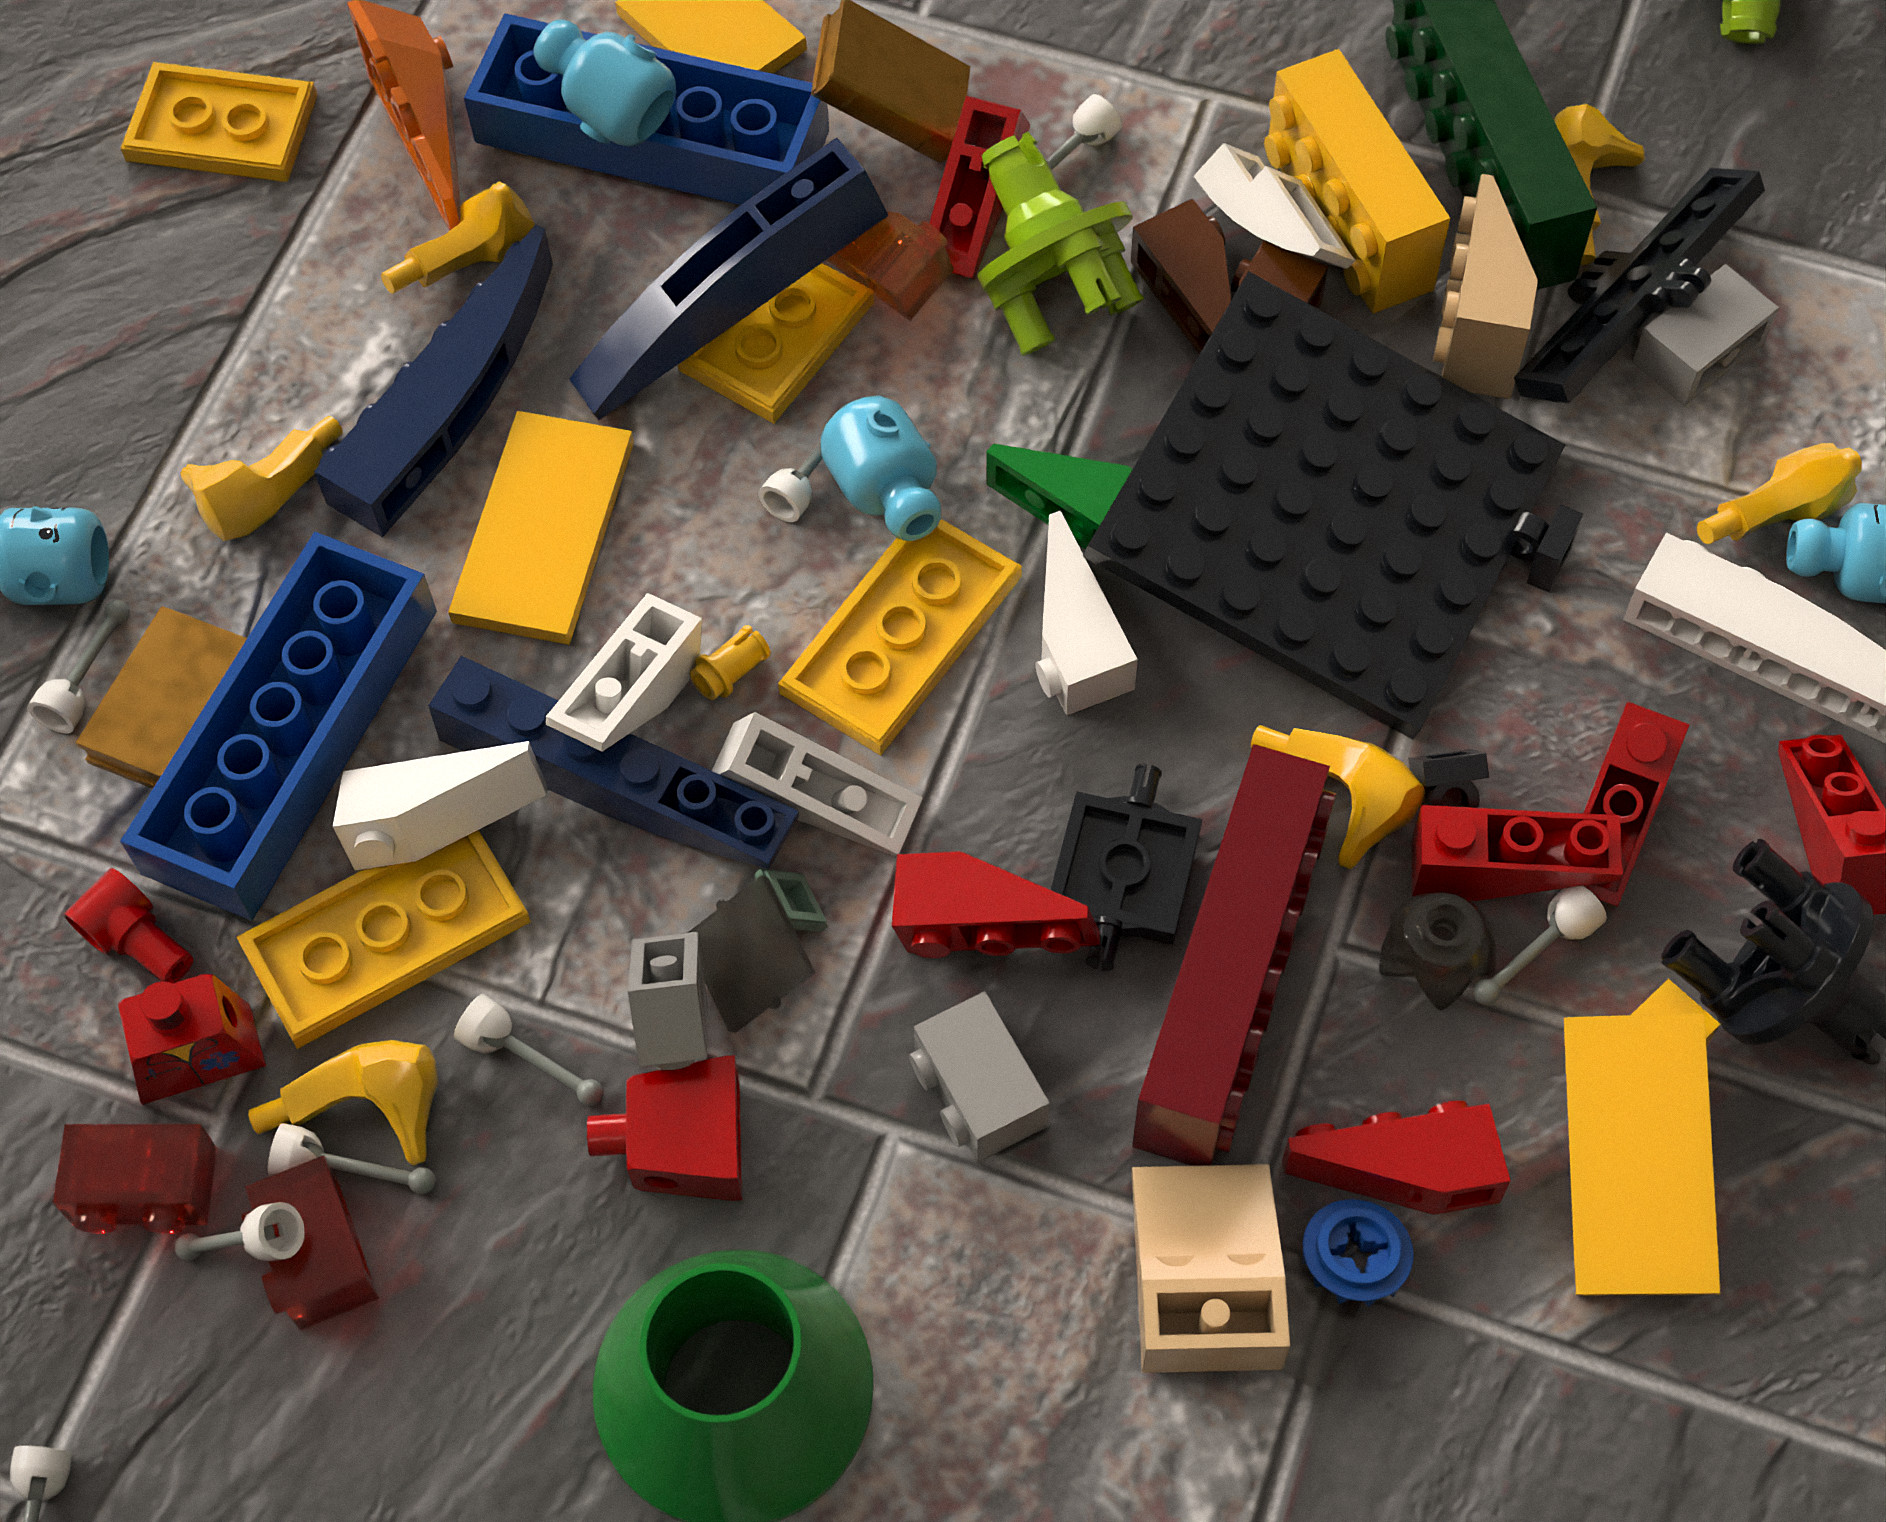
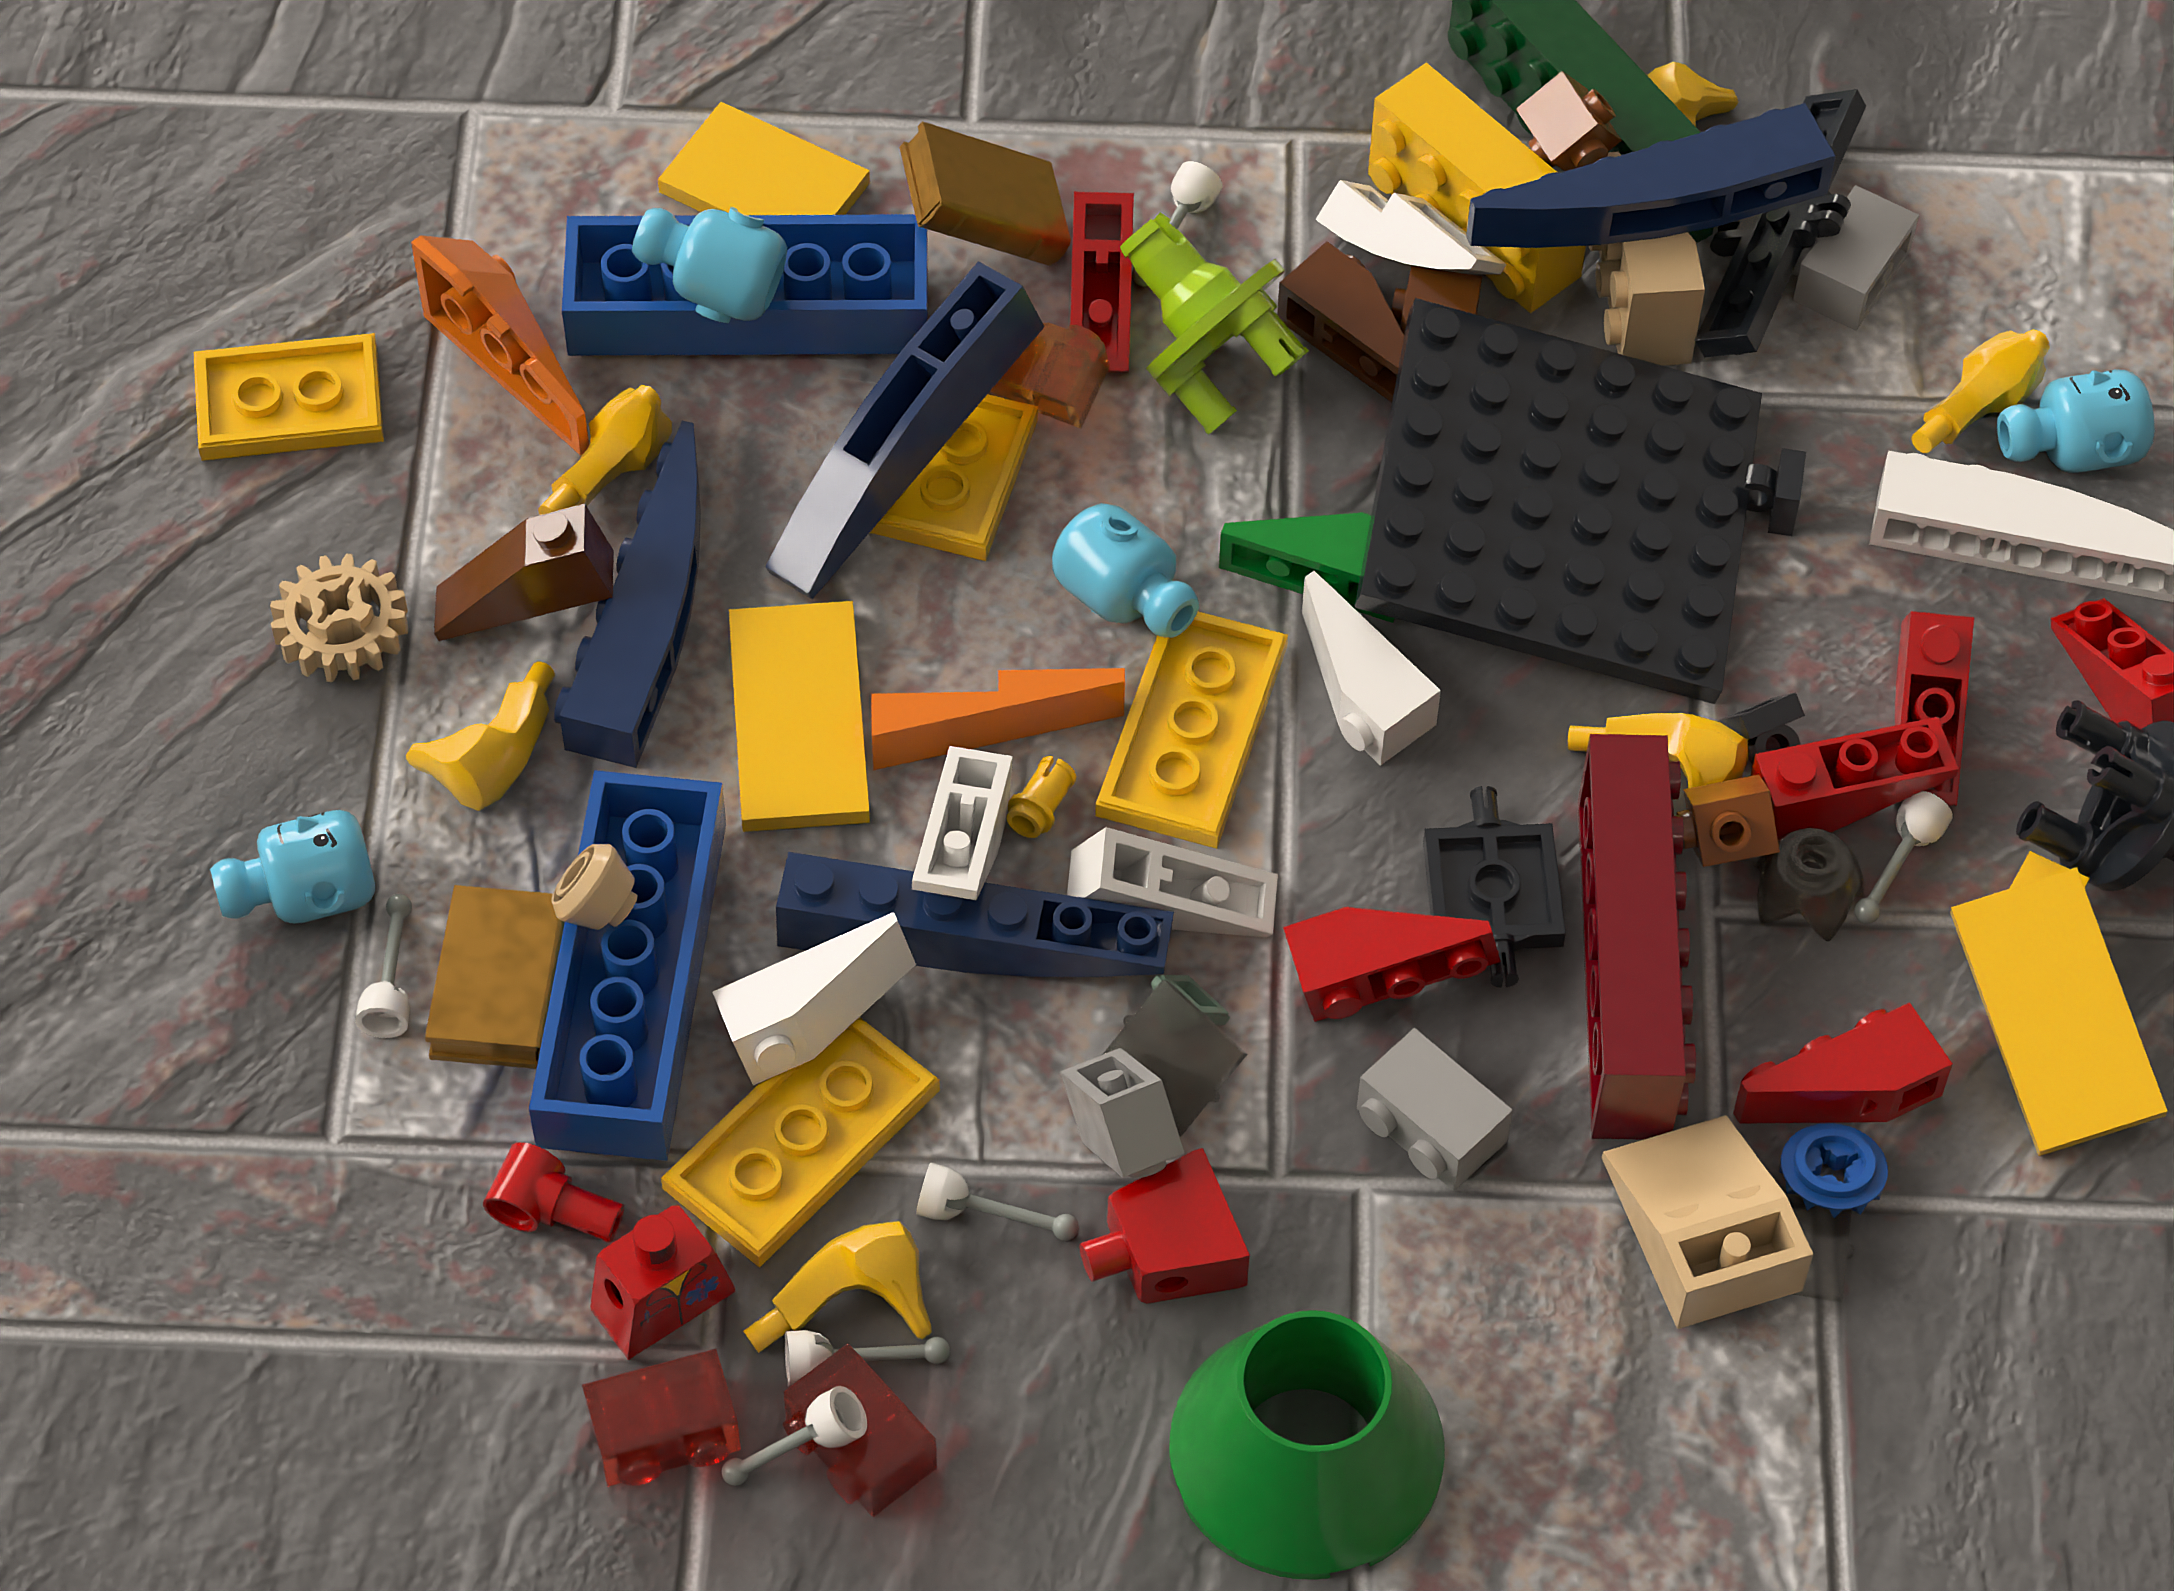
camera: 20 degrees left, 5 degrees down
(171, 331) = (339, 617): none -> tan gear
(255, 647) = (595, 889): none -> tan cone
(347, 330) = (527, 573): none -> reddish brown slope
(744, 569) = (1026, 705): none -> orange slope
(789, 491) = (1036, 609): white hinge -> none
(1371, 865) = (1729, 821): none -> dark orange brick
(1453, 139) = (1569, 123): none -> brick
(1521, 220) = (1663, 188): none -> dark blue slope

